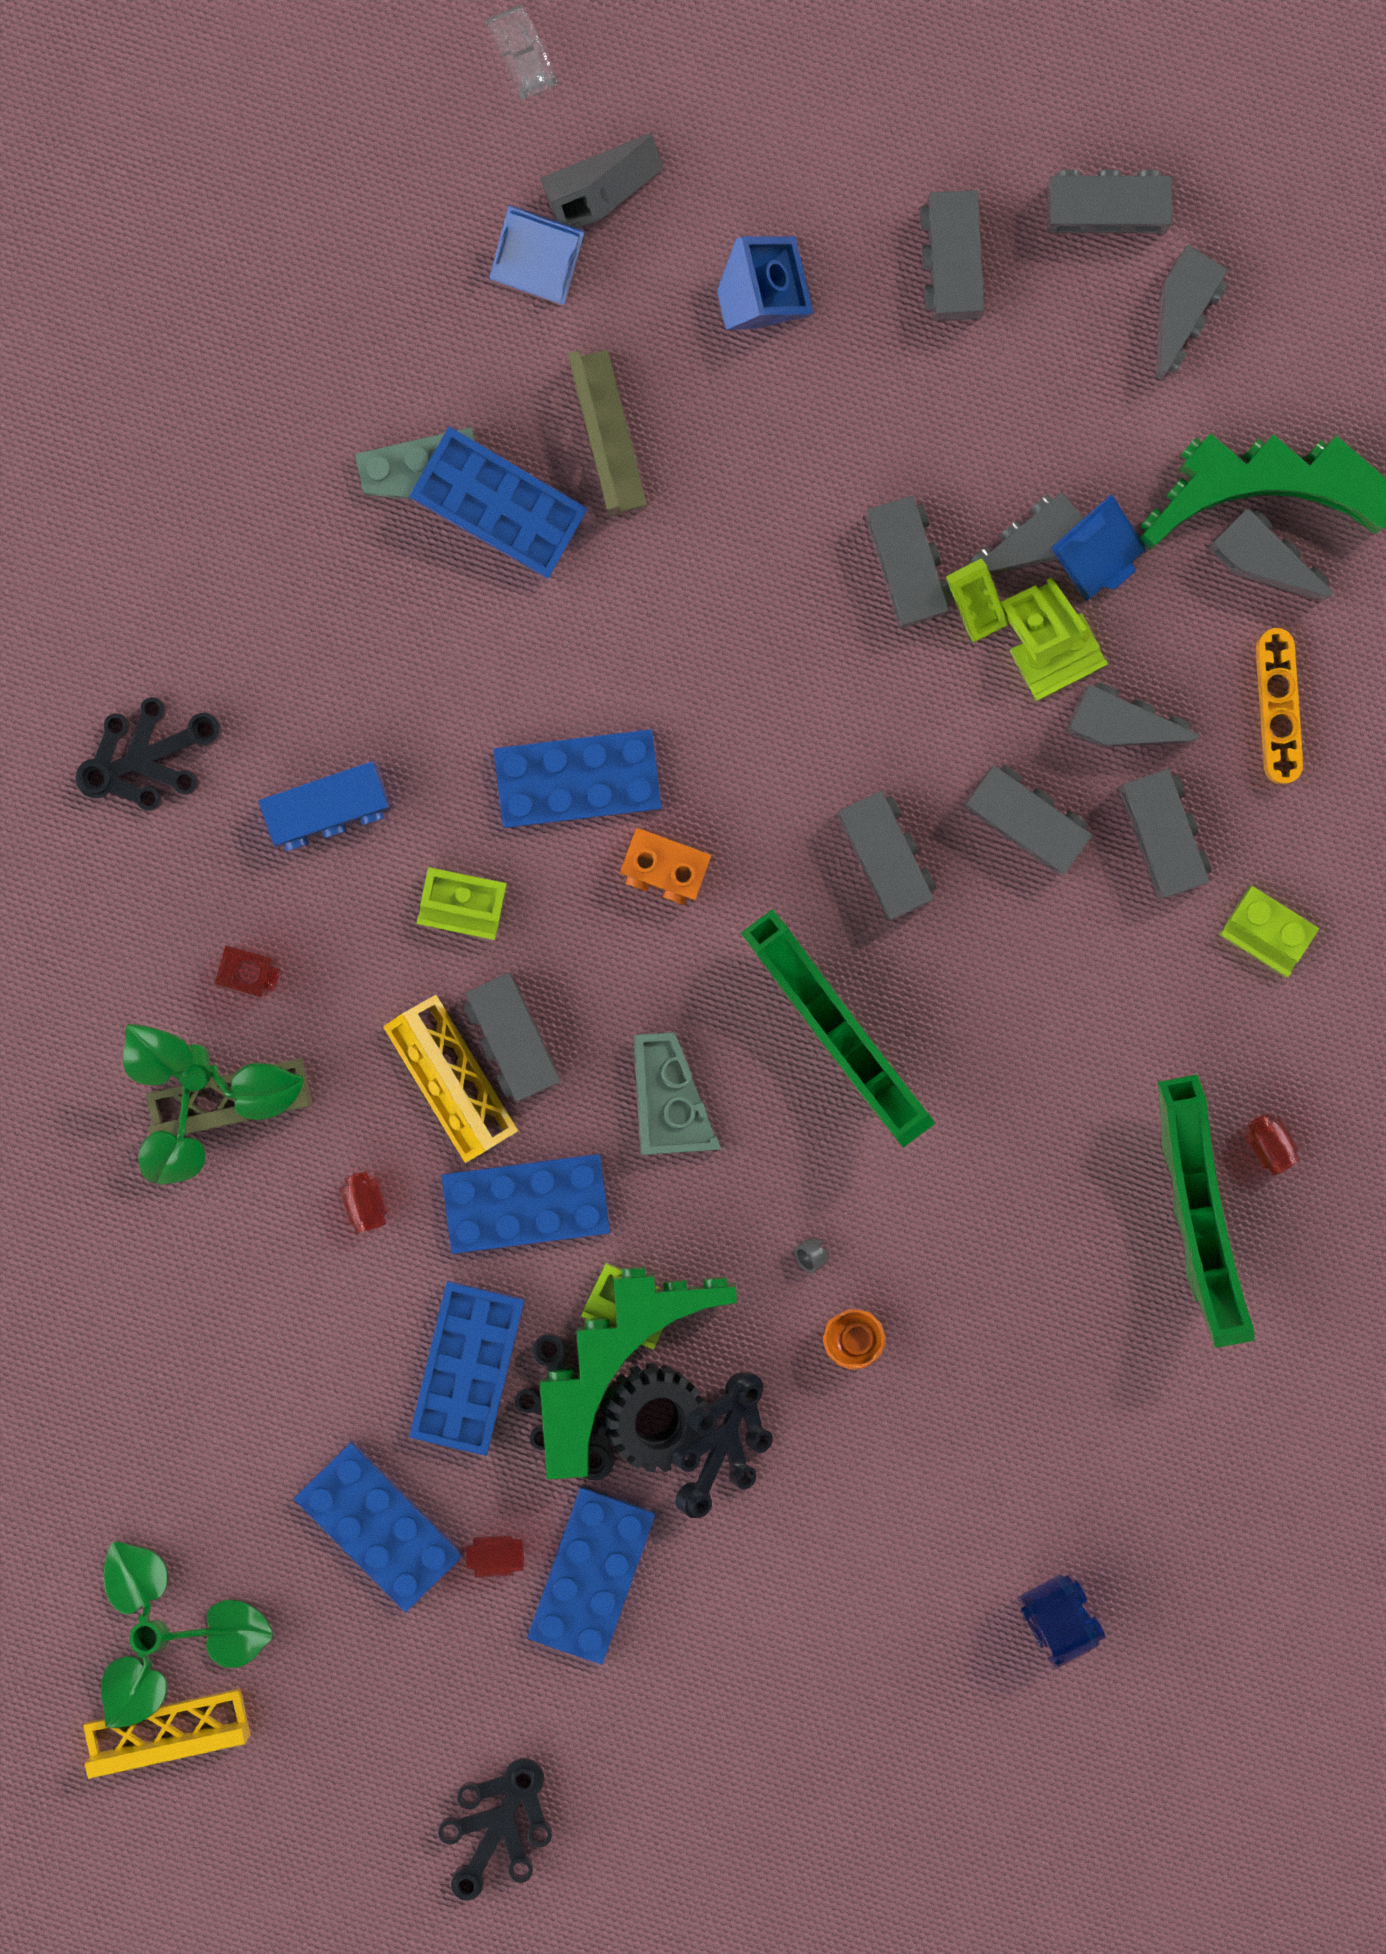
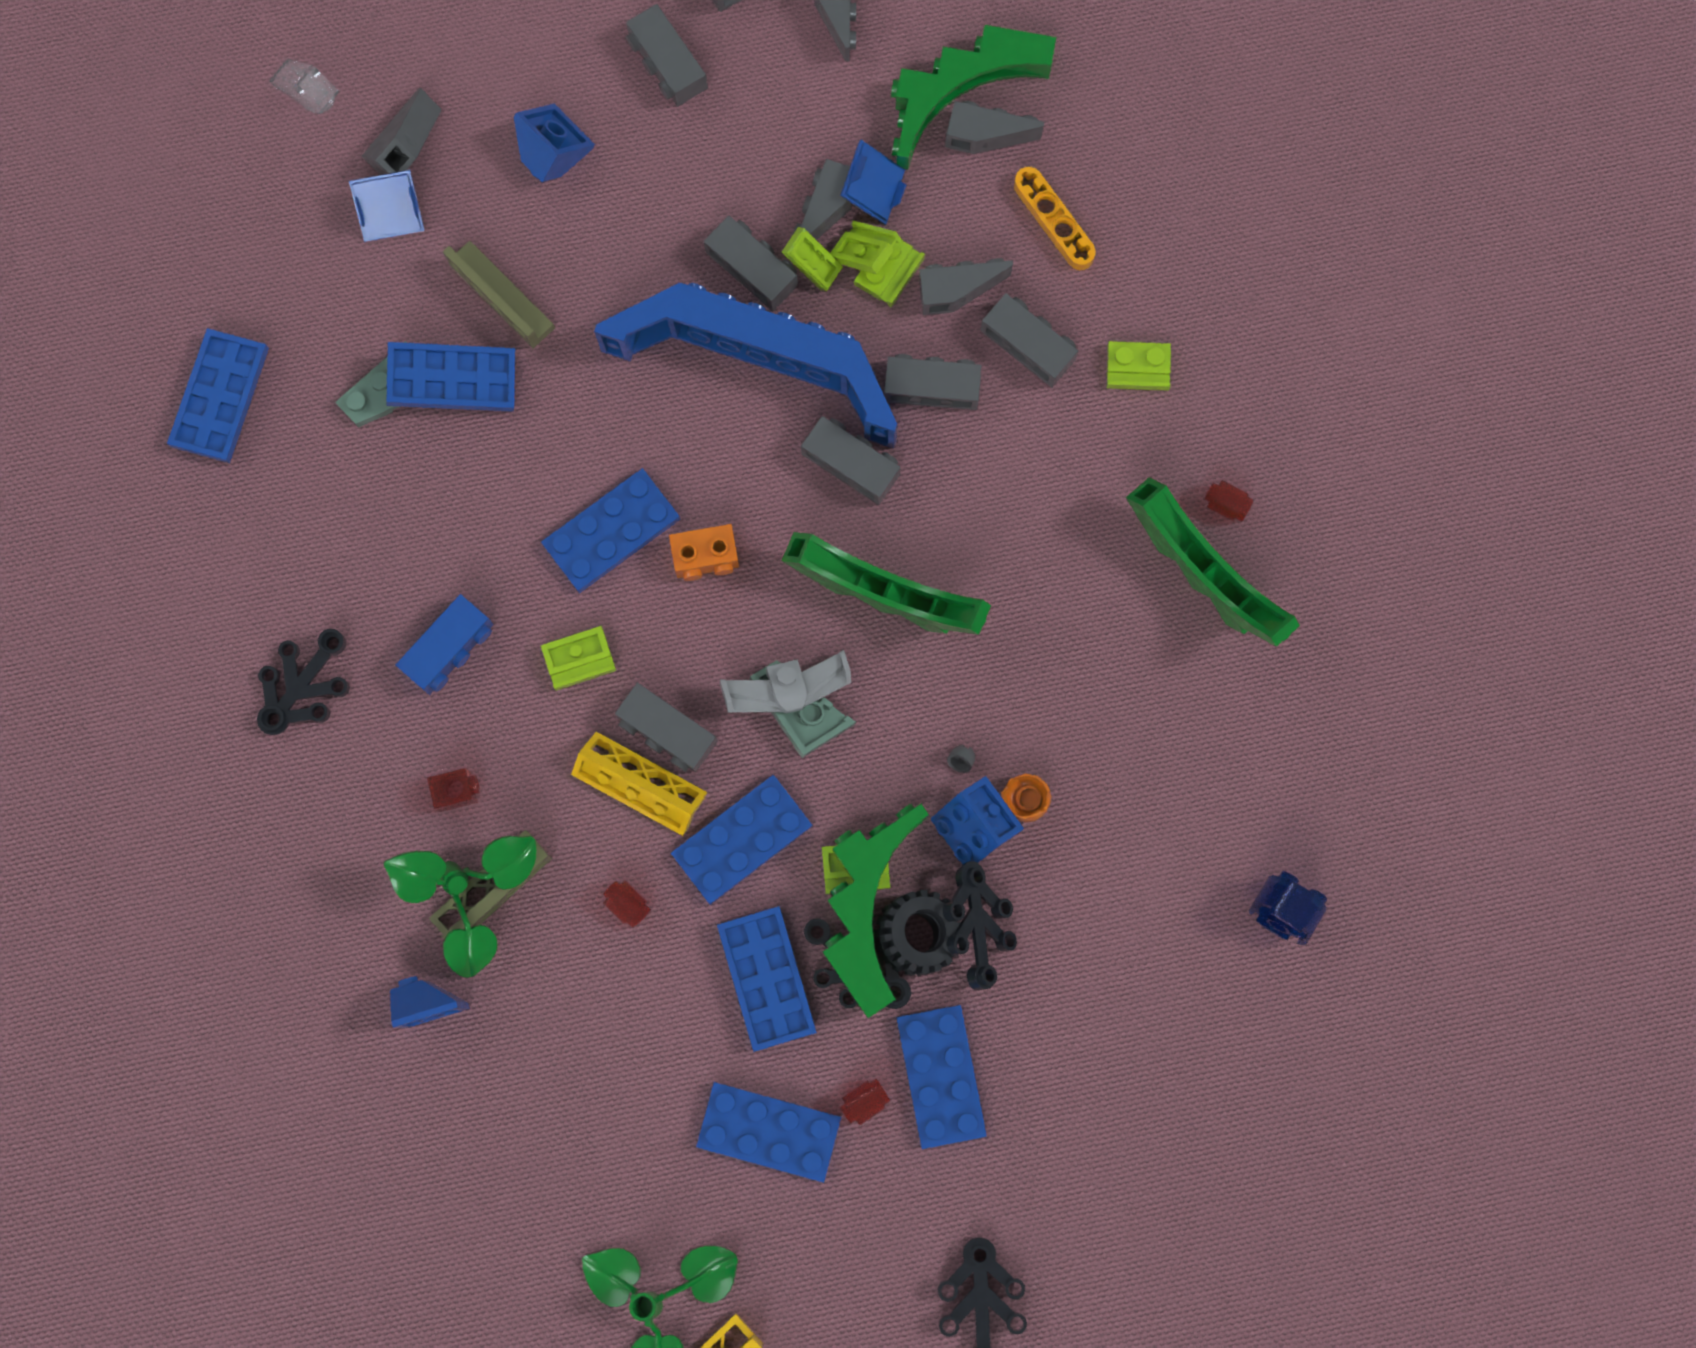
camera: 30 degrees left, 10 degrees down
(90, 1185) = (421, 1002): none -> blue slope
(229, 370) = (218, 395): none -> blue plate
(669, 1070) = (787, 686): none -> light grey plate
(785, 1337) = (976, 822): none -> blue bracket
(866, 663) = (758, 339): none -> blue slope

